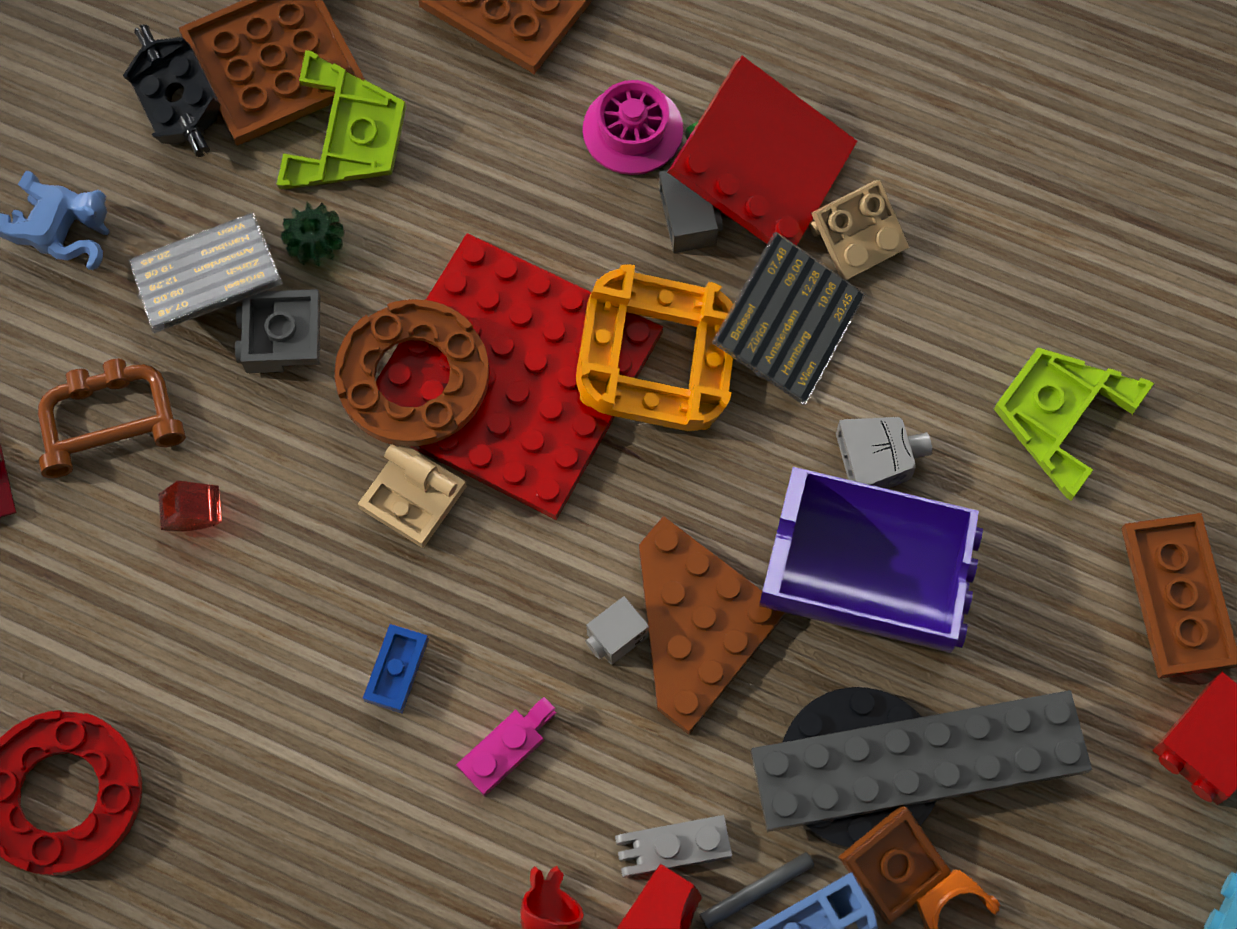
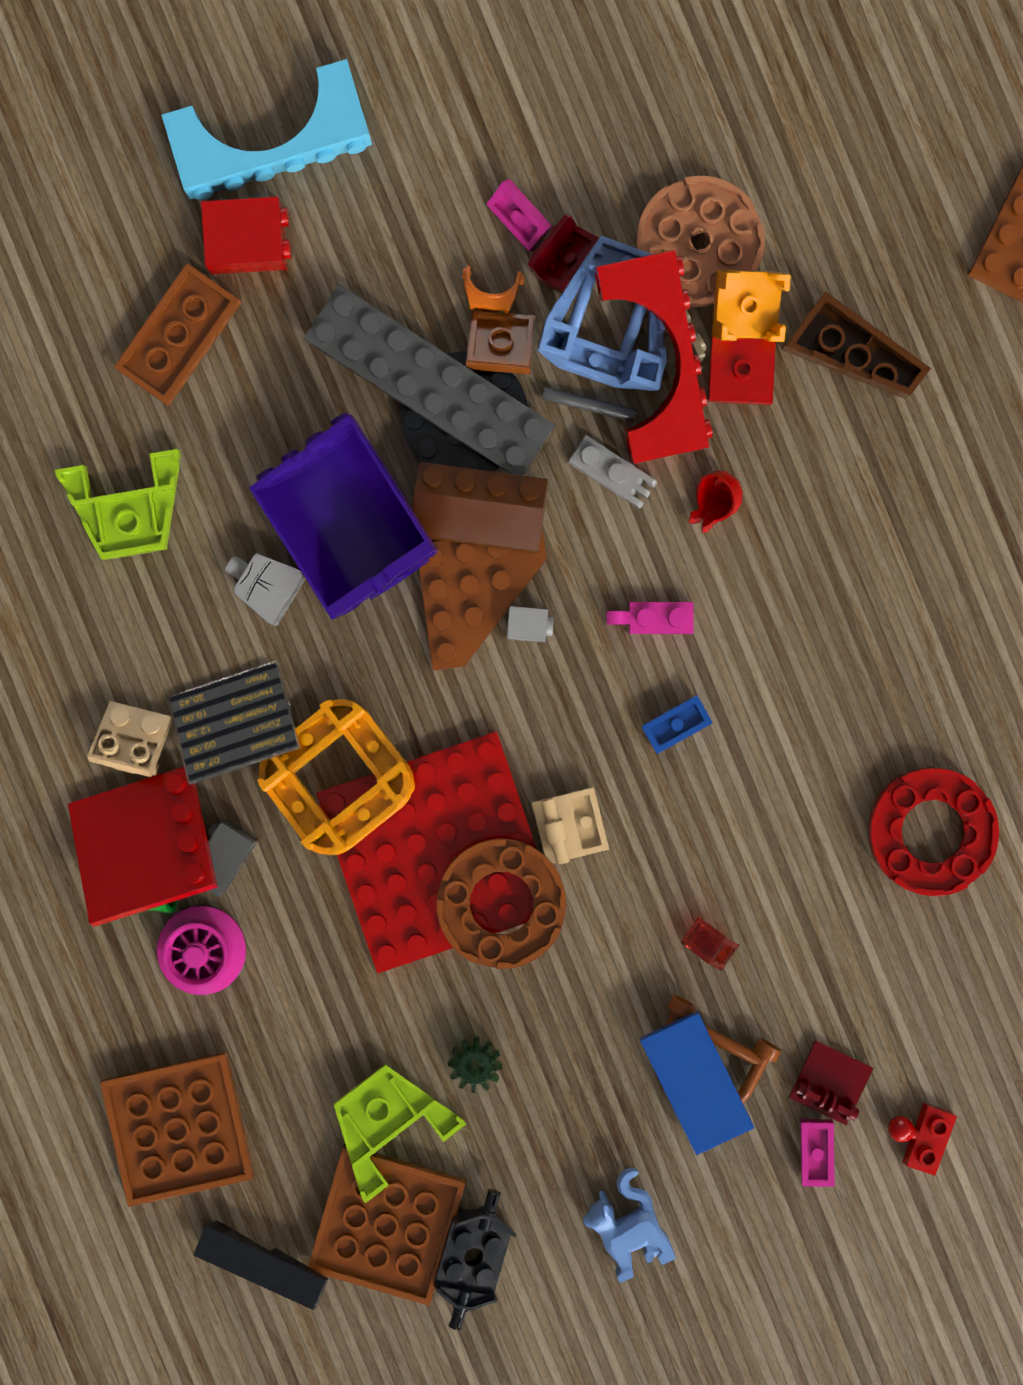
camera: 140 degrees left, 20 degrees up
(98, 379) = (696, 1083): none -> blue tile
(204, 272) = (567, 1099): piece -> none
(278, 330) = (556, 1013): dark grey plate -> none
(761, 689) = (480, 506): none -> reddish brown slope

